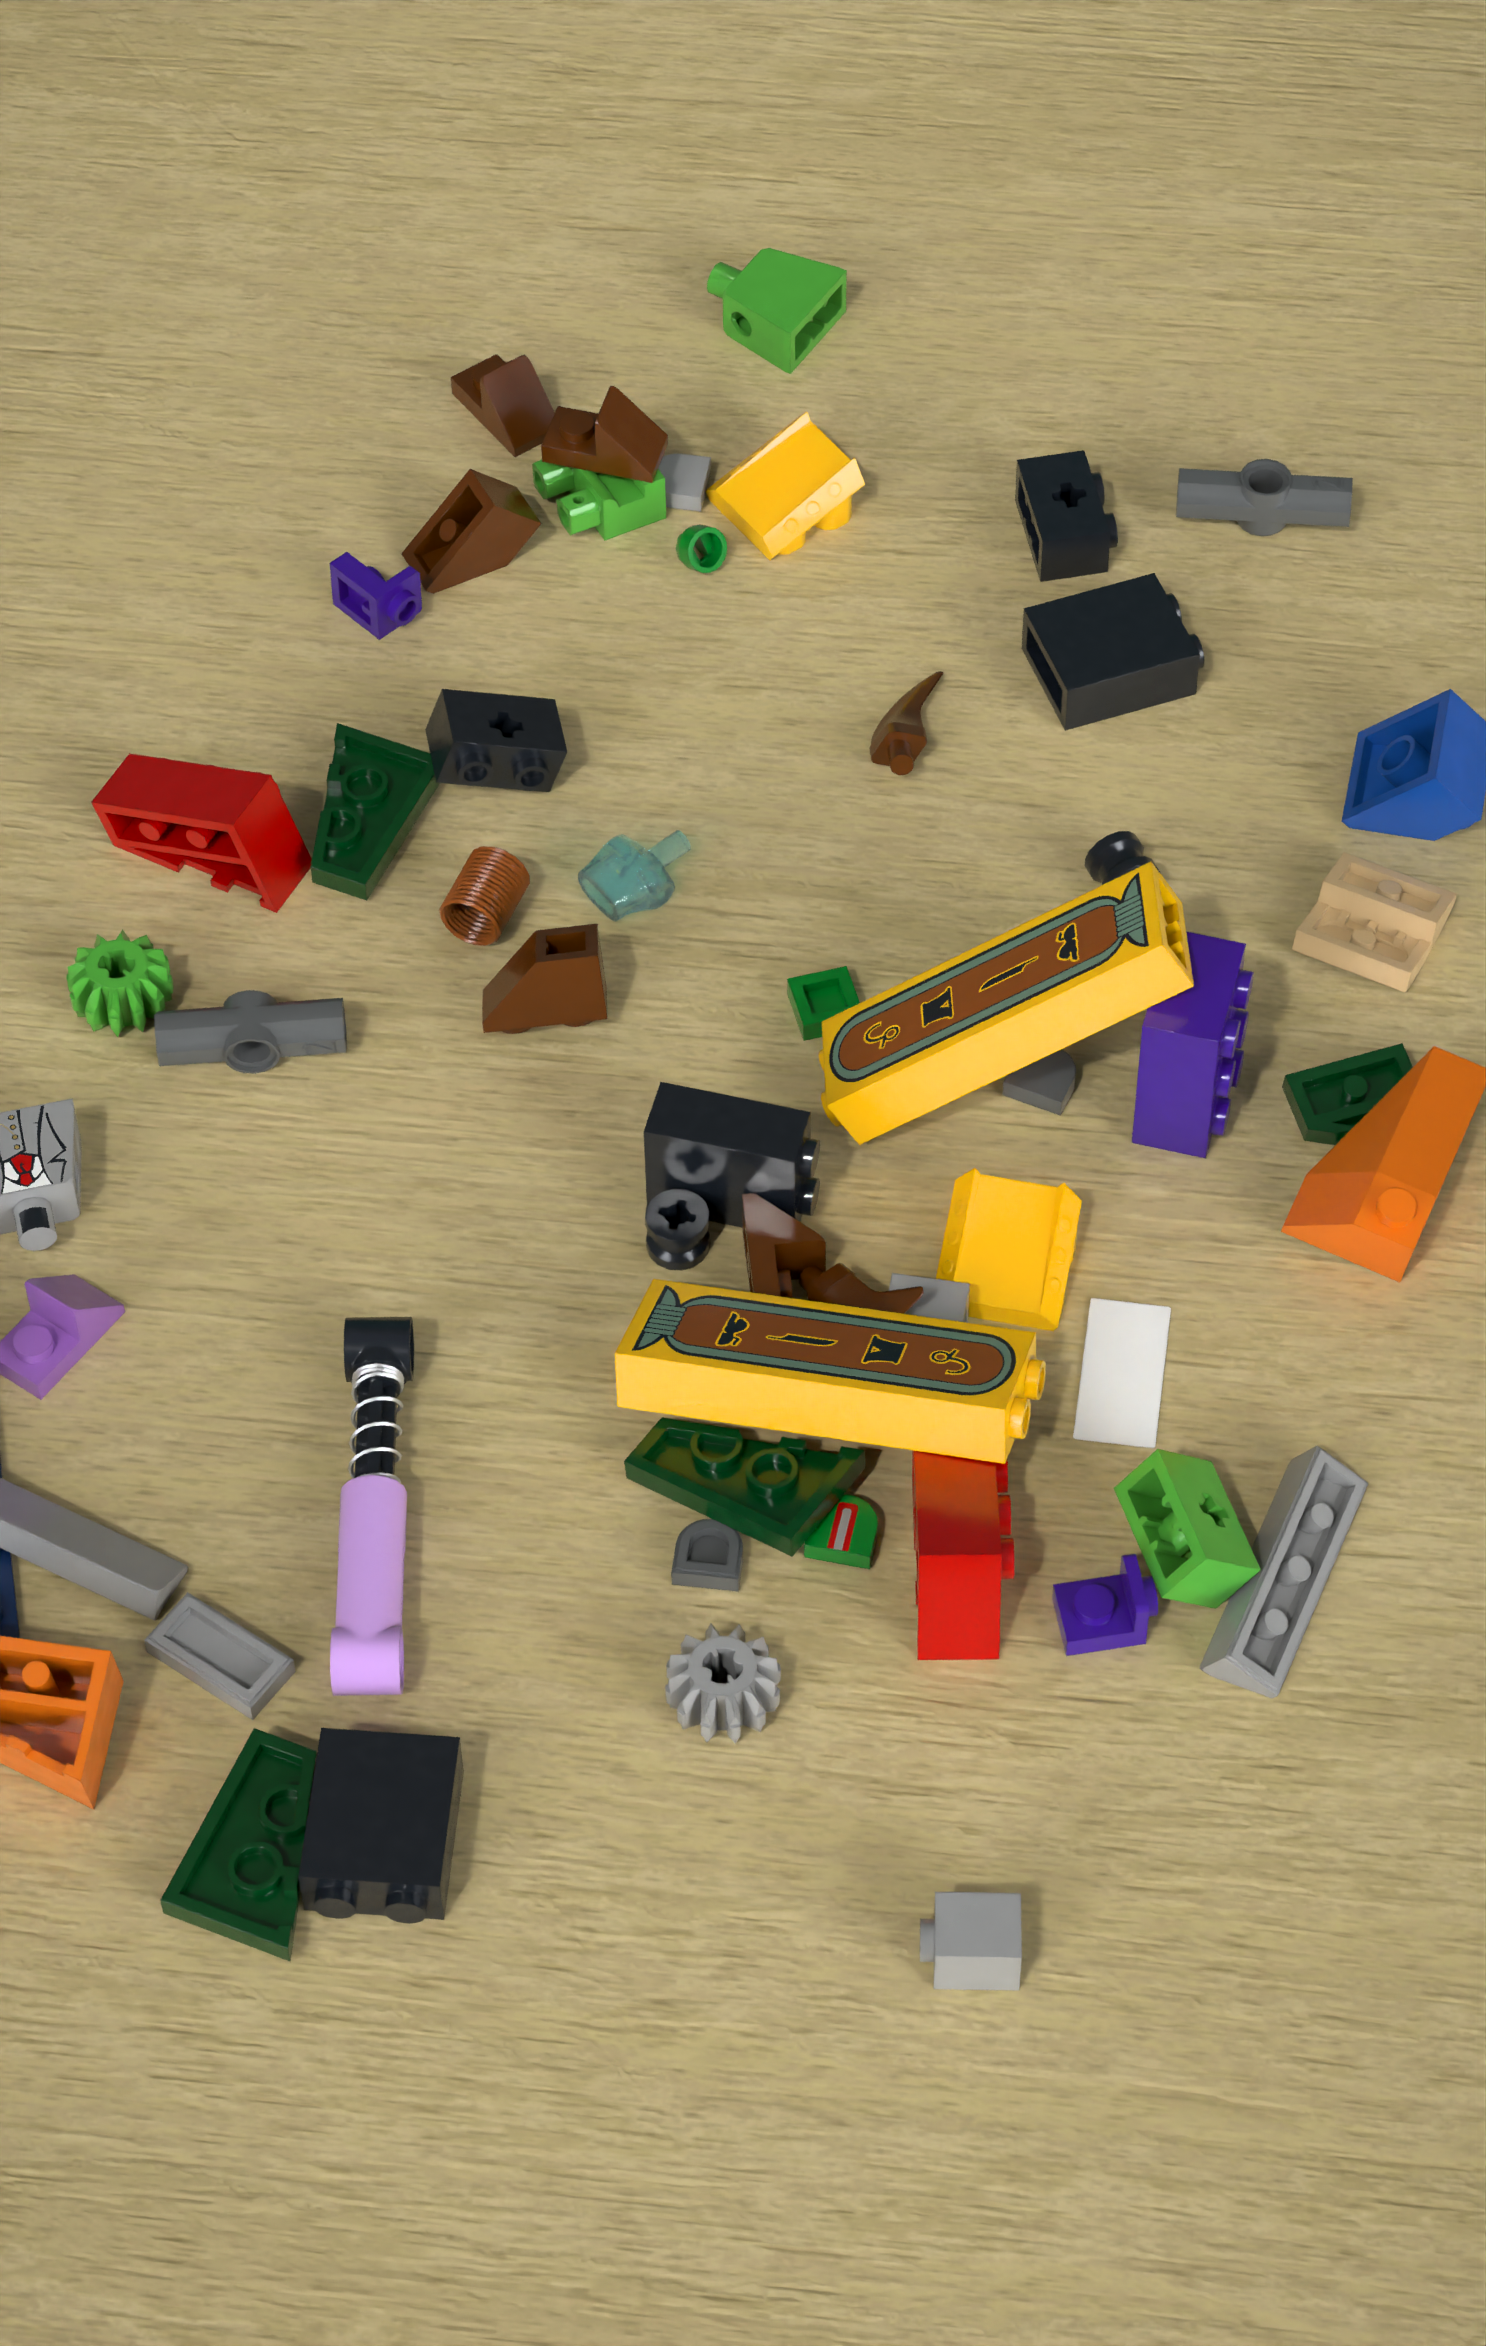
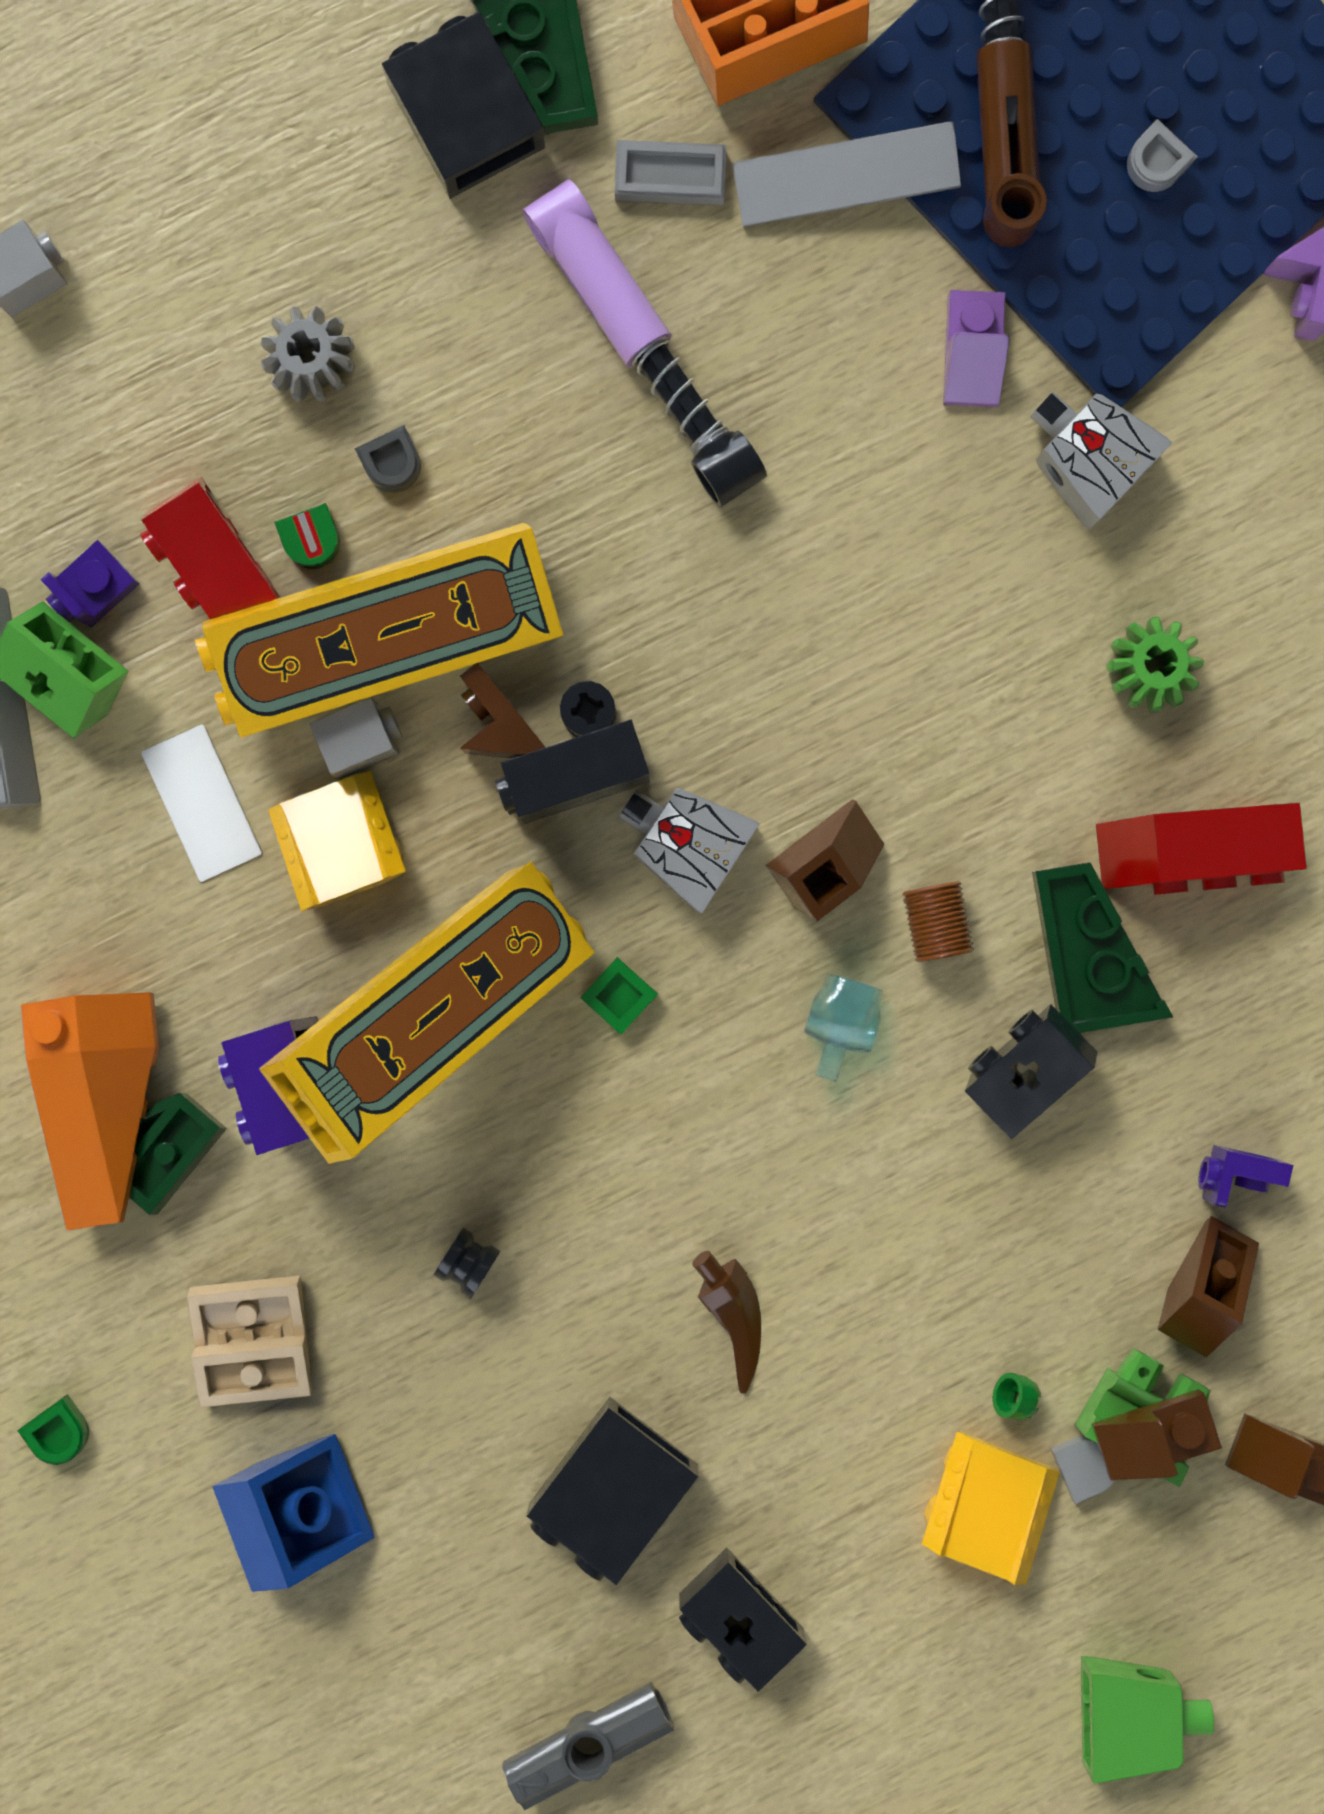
camera: 140 degrees right, 35 degrees up
(250, 1032) = (1024, 685): dark grey piece -> none
(652, 1048) = (688, 842): none -> light grey torso
(743, 1483) = (393, 520): dark green wing -> none
(842, 1287) = (415, 712): reddish brown bar -> none

